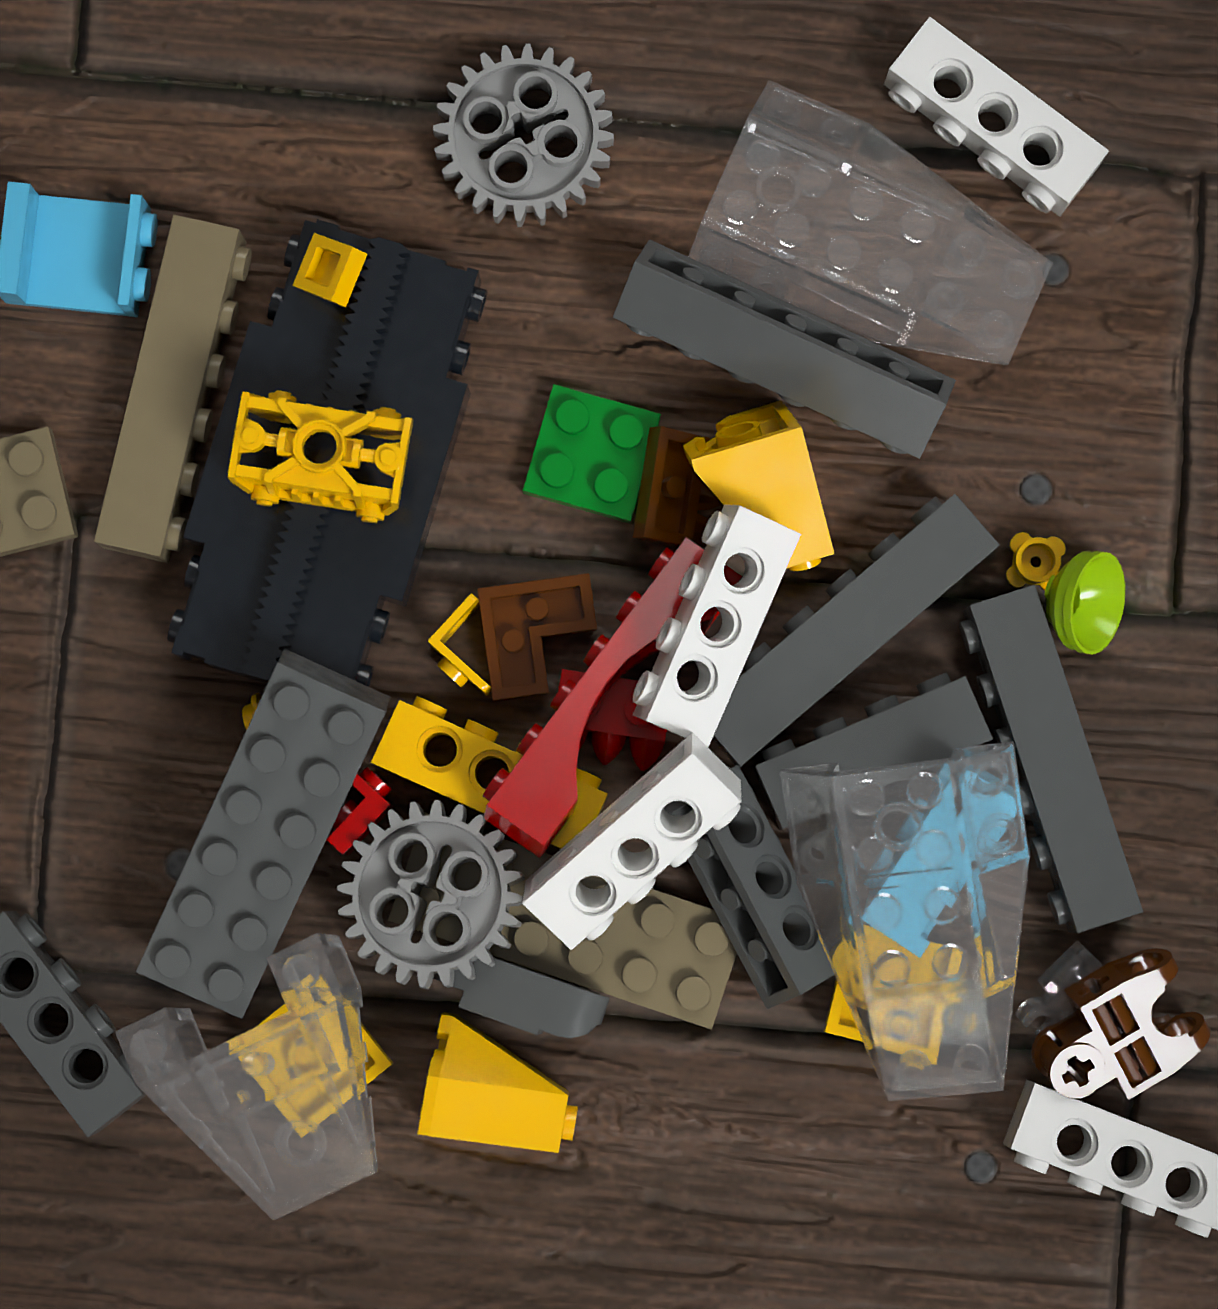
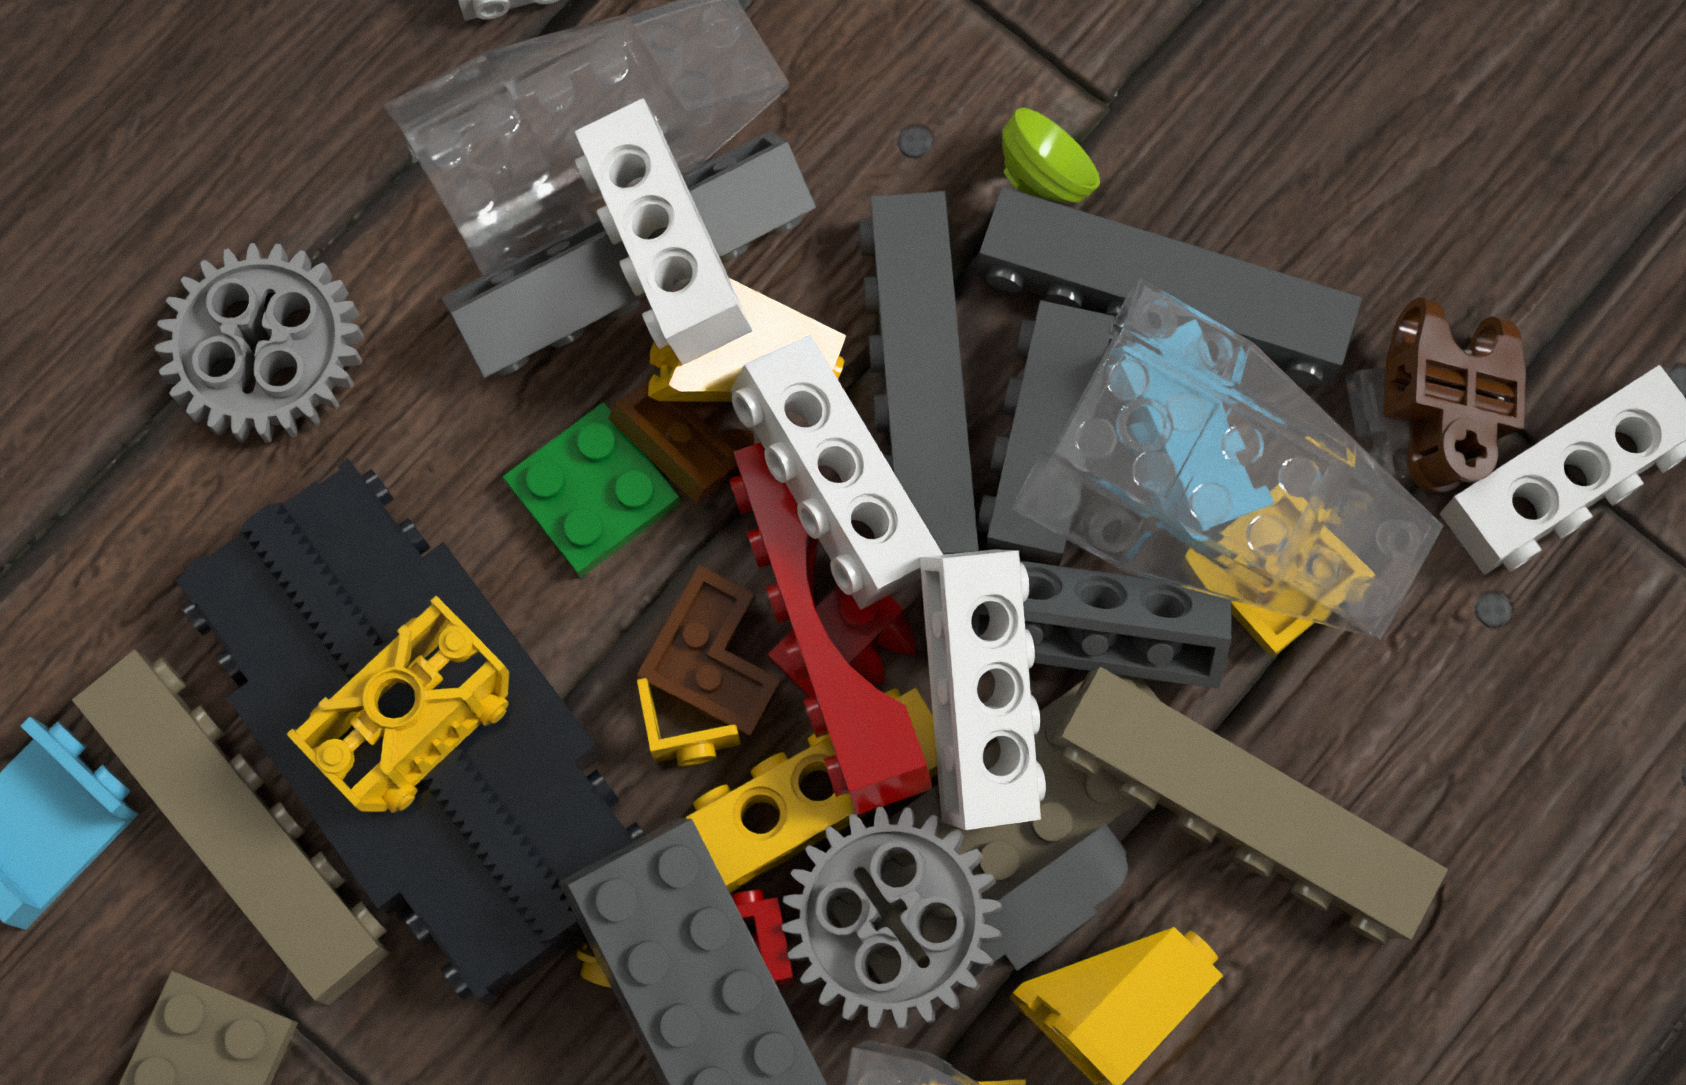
camera: 55 degrees left, 10 degrees down
(329, 269) = (239, 583): yellow plate -> none
(692, 1088) = (1248, 806): none -> dark tan brick
(767, 448) = (706, 310): none -> white brick
(1024, 548) = (975, 165): yellow plate -> none

